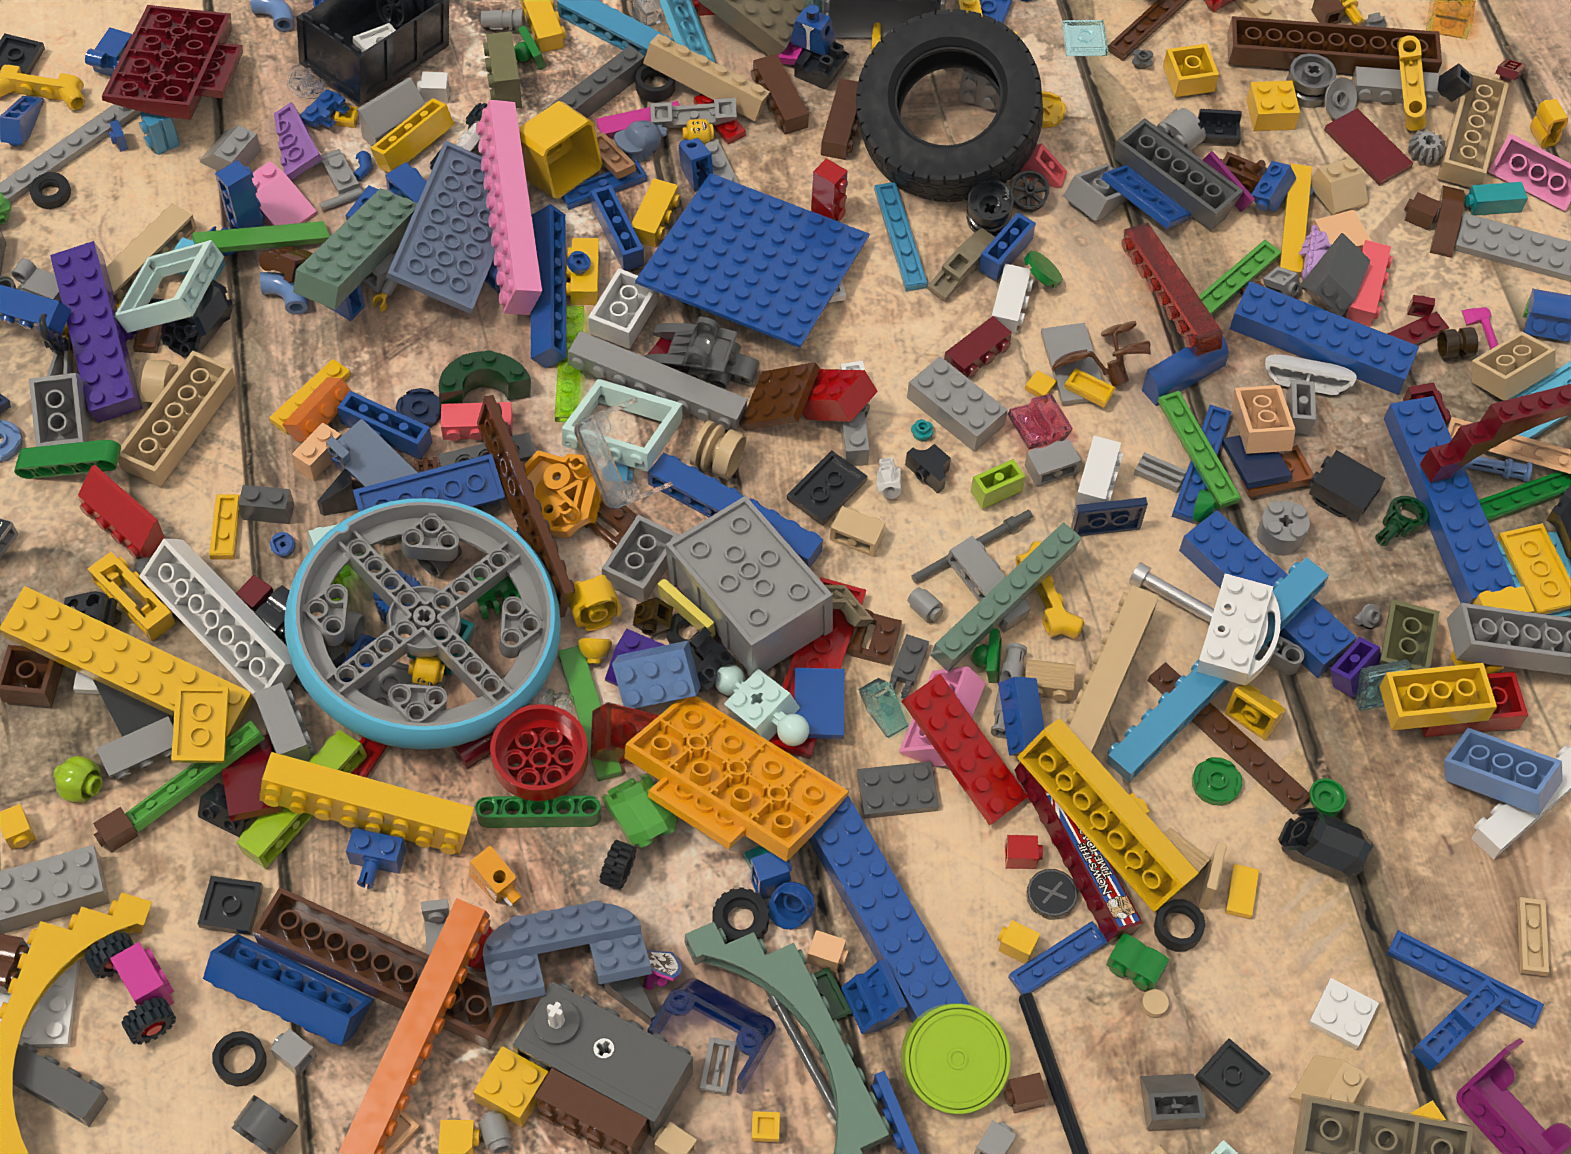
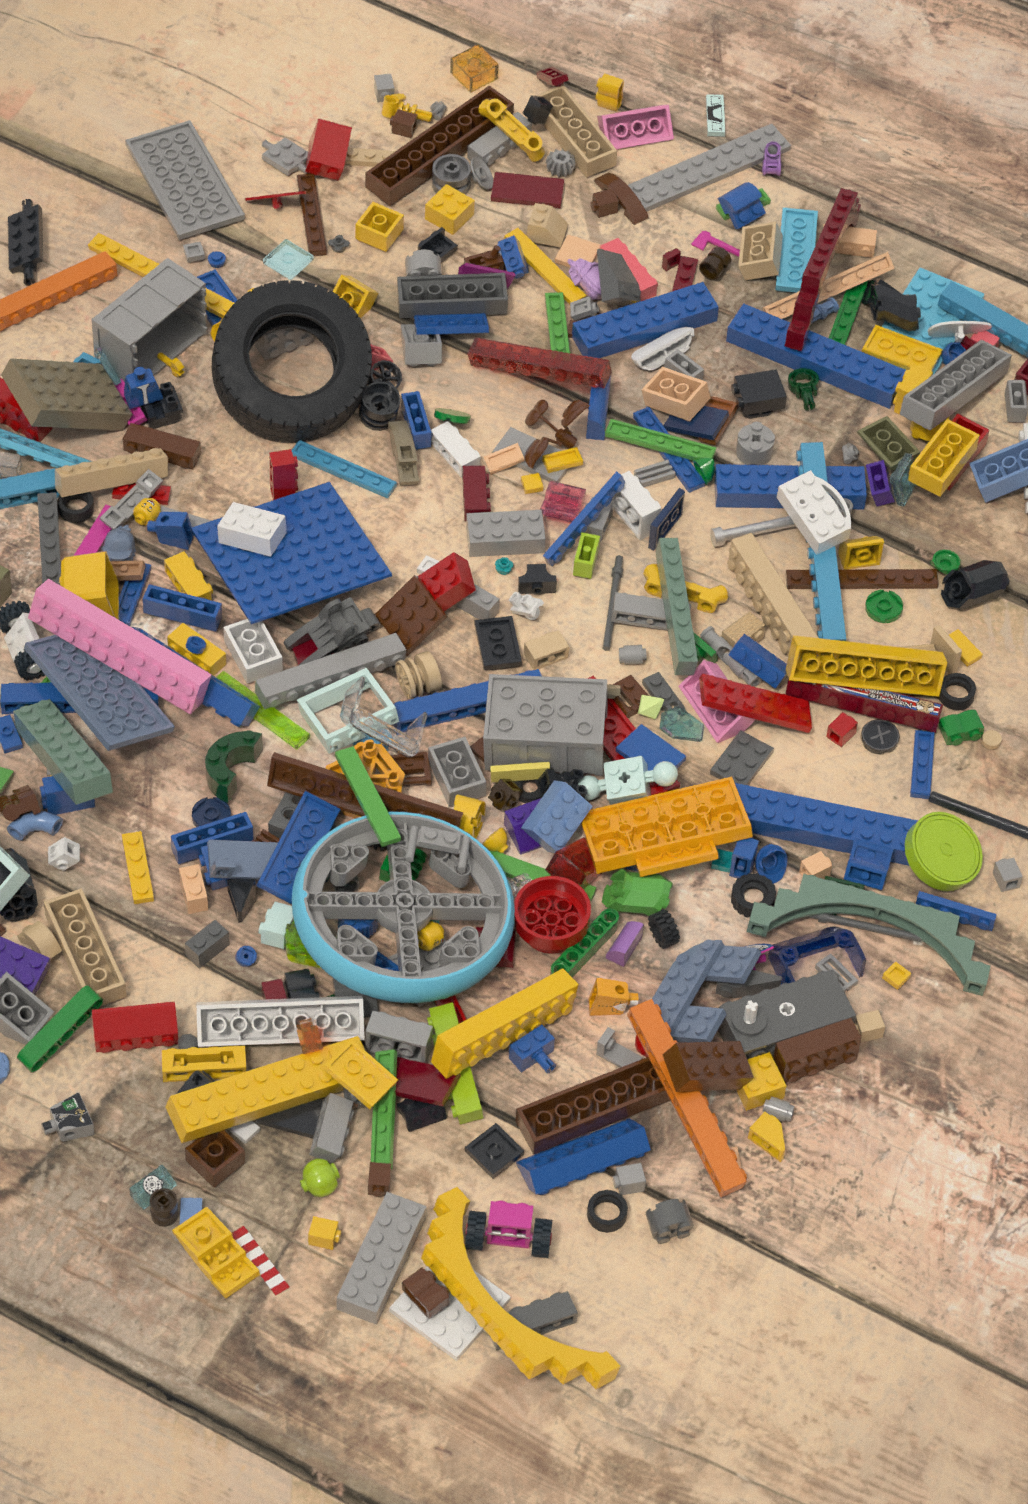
camera: 50 degrees left, 5 degrees down
(207, 651) = (309, 1035): none -> clear orange brick
(225, 527) = (196, 980): yellow tile -> none
(273, 329) = (63, 854): none -> white brick
(317, 408) = (160, 866): orange brick -> none
(457, 1023) = (708, 1066): none -> reddish brown brick
(460, 420) = (253, 791): coral brick -> none
(510, 501) = (367, 796): none -> bright green tile
(516, 594) = (438, 840): none -> light grey plate
(577, 845) = (625, 943): none -> medium lavender brick
(740, 210) = (251, 529): none -> white brick
(841, 121) = (219, 429): reddish brown brick -> none
(877, 663) = (650, 706): none -> yellowish green slope
(1018, 941) = (896, 773): yellow brick -> none
(1025, 1093) = (991, 837): reddish brown brick -> none
(1030, 448) = (585, 517): none -> blue plate
(1041, 343) = (504, 458): none -> light nougat tile
(1091, 108) = (356, 294): none -> yellow slope
(1428, 390) = (734, 306): dark red bracket -> none
(1496, 198) = (633, 161): teal brick -> none

